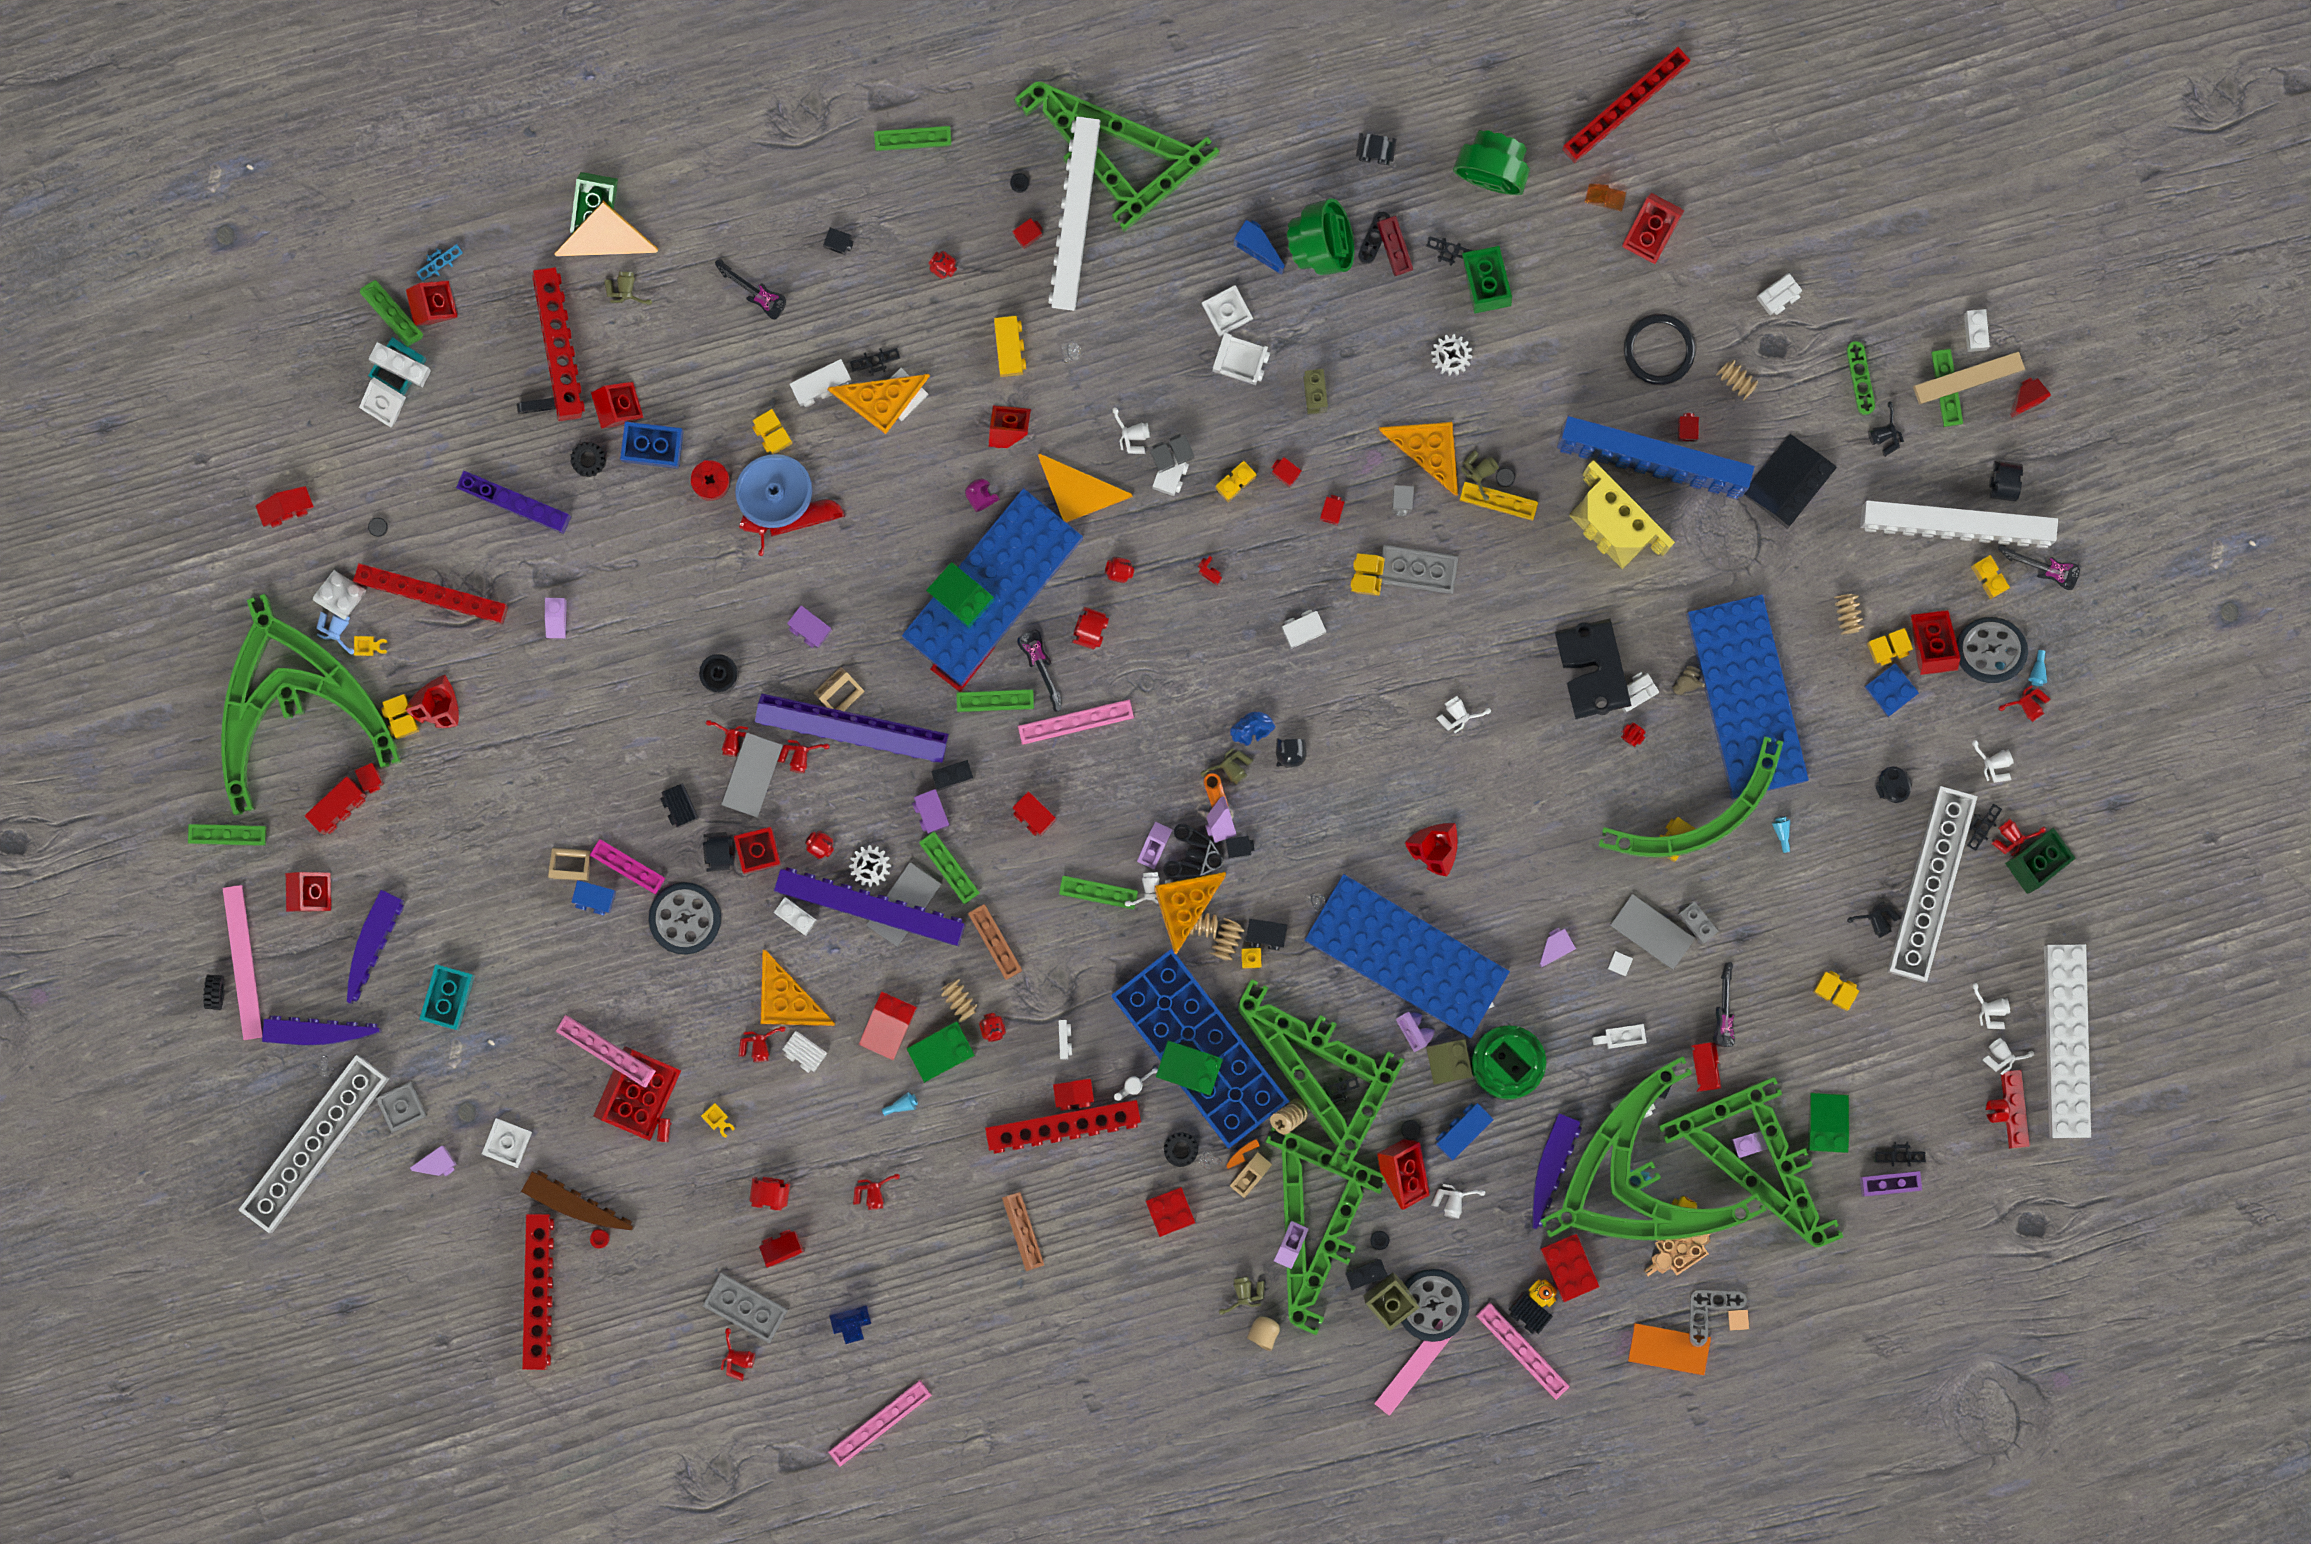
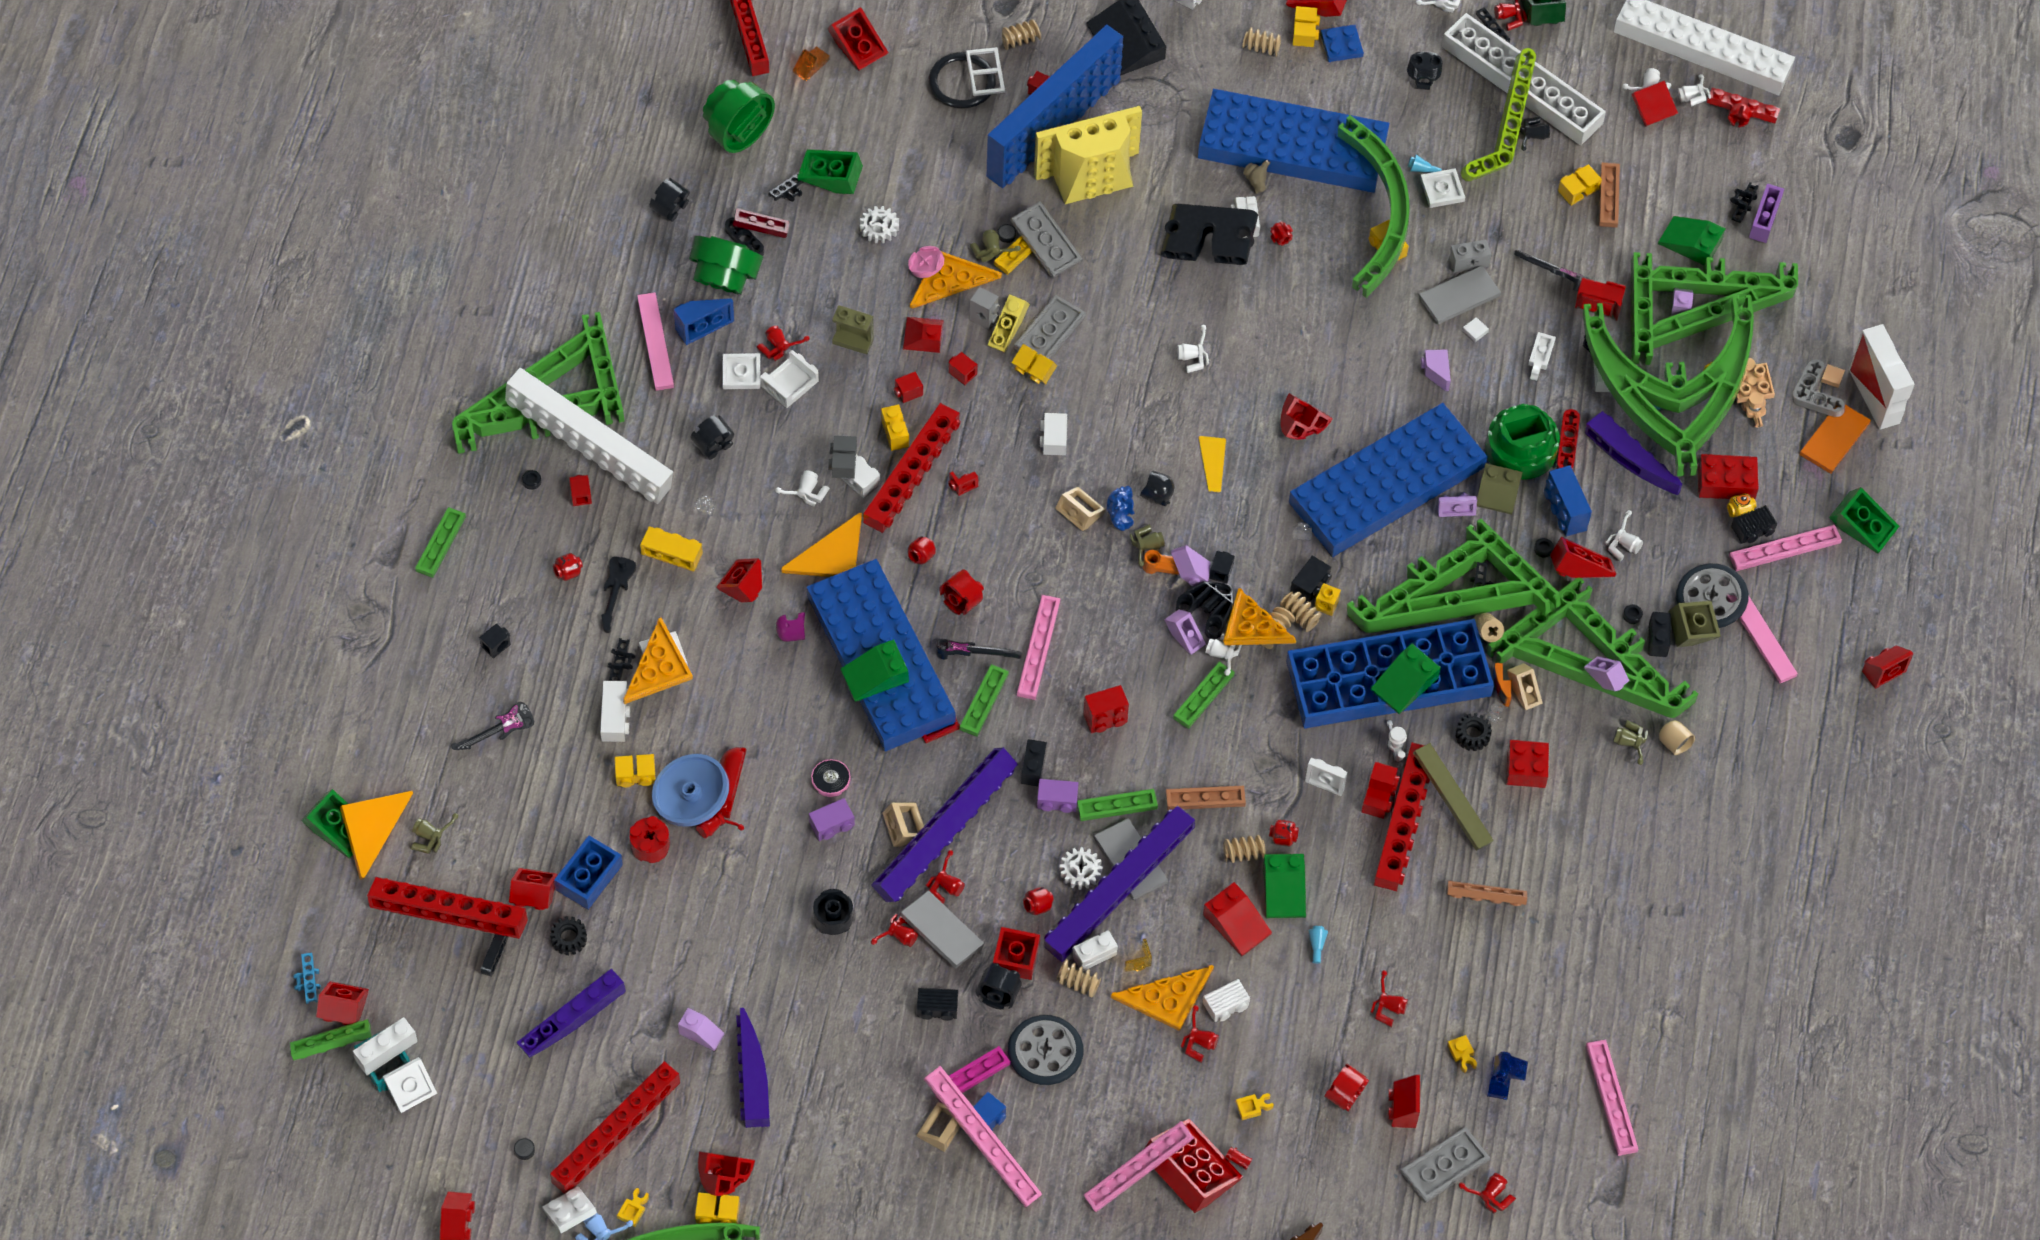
camera: 65 degrees left, 25 degrees down
(536, 683) = (753, 1075): none -> dark purple slope
(569, 906) = (982, 1136): none -> bright pink tile
(761, 915) = (1078, 979): none -> tan piece
(803, 962) = (1140, 963): none -> clear yellow bracket
(852, 604) = (830, 778): none -> black tile
(860, 1275) = (1462, 1050): none -> yellow plate
(966, 313) = (620, 572): none -> black piece
(1101, 1160) = (1453, 796): none -> olive tile
(1139, 323) = (713, 436): none -> black brick
(1221, 215) = (655, 341): none -> bright pink tile
(1230, 686) = (1076, 512): none -> tan tile
(1270, 517) = (941, 416): none -> red brick
(1277, 327) = (776, 338): none -> red piece
(1354, 455) = (923, 334): none -> red slope
(1358, 783) = (1213, 458): none -> yellow sticker
(1403, 528) = (1008, 323): none -> light yellow slope
(1432, 419) = (926, 262): none -> bright pink tile
(1435, 1493) = (1887, 665): none -> red slope
(1511, 518) = (1046, 239): none -> light grey tile
(1538, 1106) = (1568, 441): none -> red beam
(1586, 1413) = (1864, 520): none -> green slope
(1685, 378) = (985, 71): none -> white window
(1740, 1368) = (1881, 376): none -> white tile
(1766, 862) = (1442, 188): none -> white plate
(1840, 1024) = (1609, 195): none -> nougat plate
(1871, 890) = (1509, 115): none -> lime beam
(1970, 1023) = (1654, 103): none -> red tile

